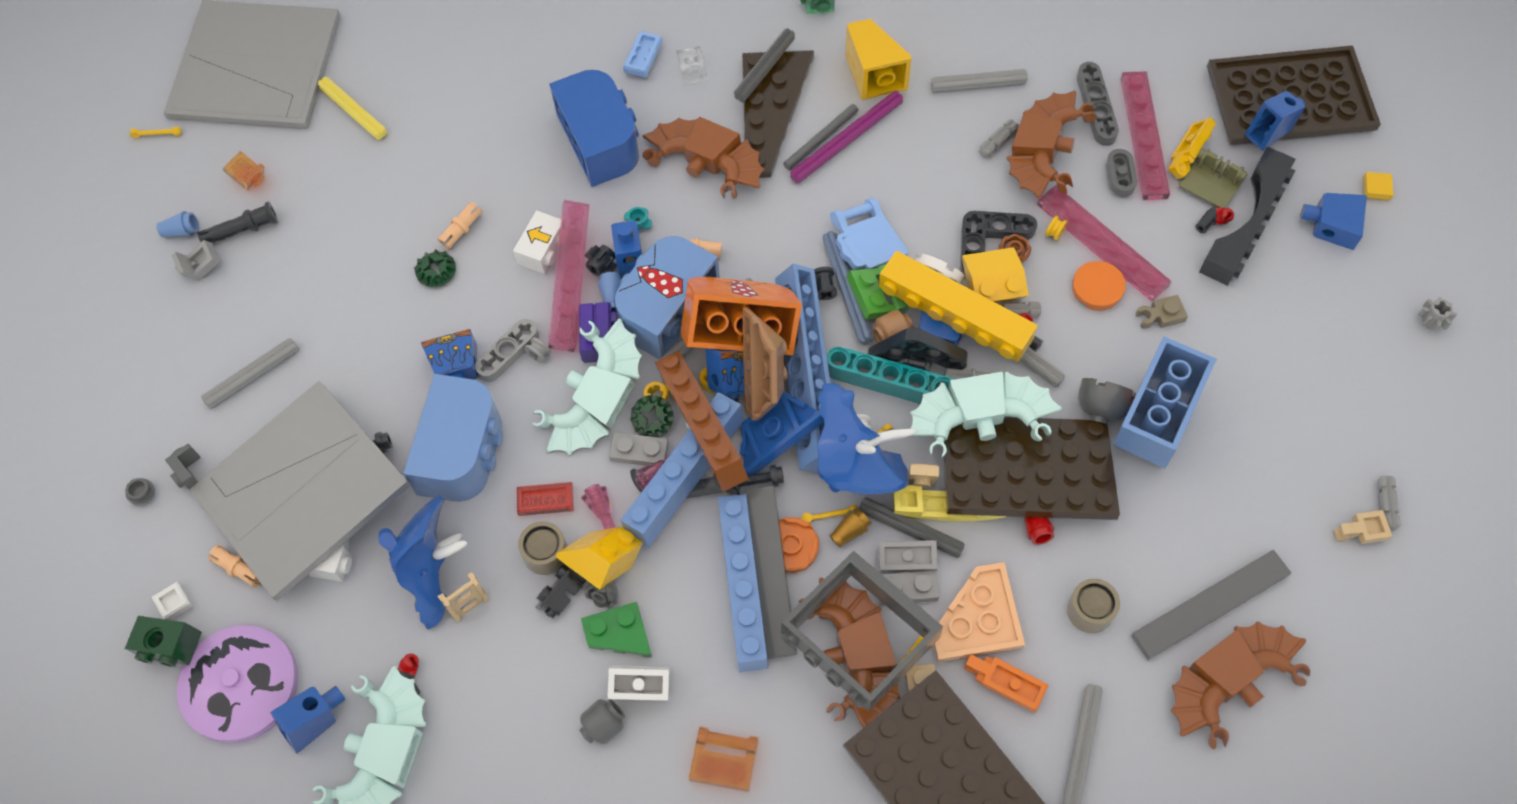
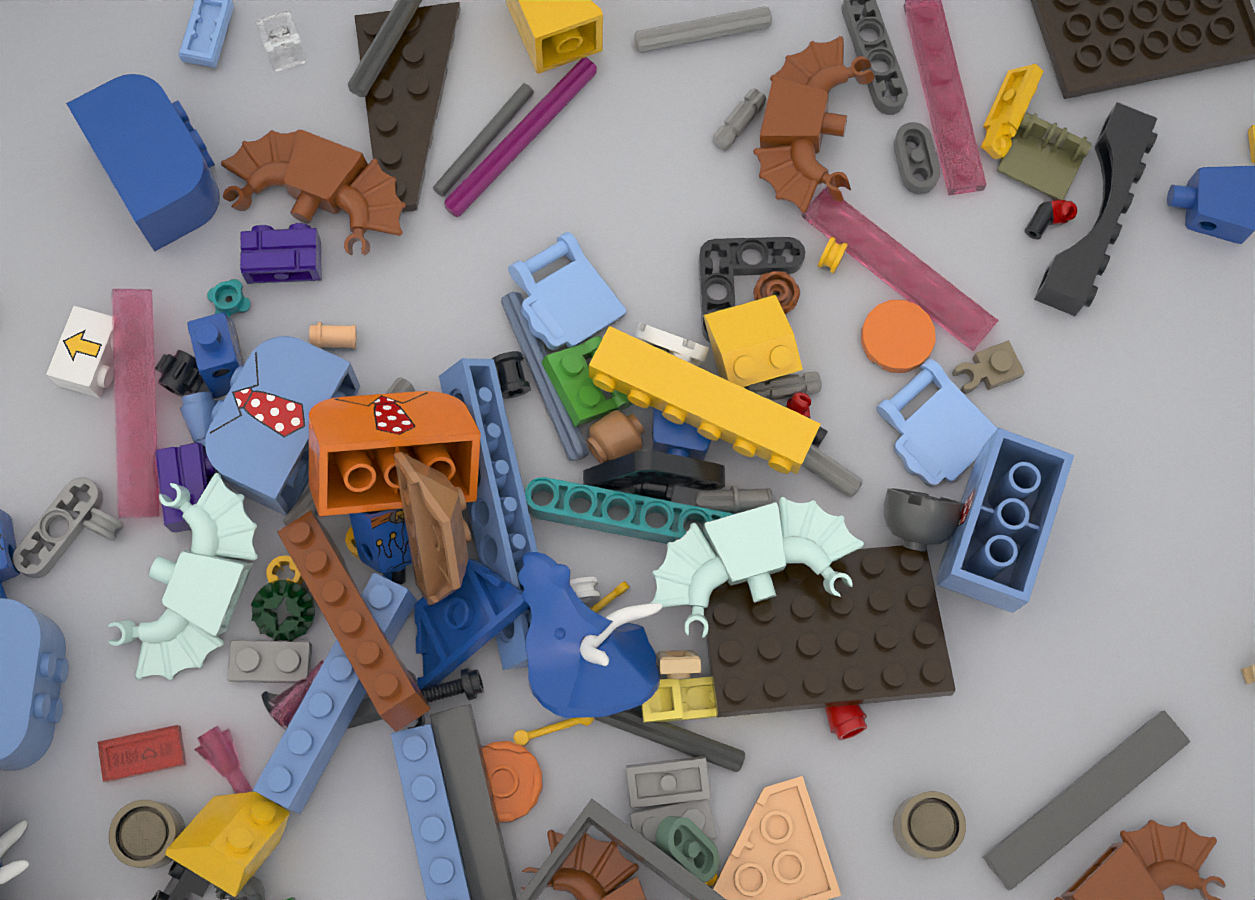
camera: 15 degrees left, 10 degrees up
(676, 194) = (280, 254): none -> dark purple brick
(851, 526) = (584, 747): pearl gold cone -> none
(917, 590) = (688, 846): none -> sand green plate
(1124, 351) = (942, 433): none -> light blue piece
(1280, 110) = (1138, 48): blue torso -> none

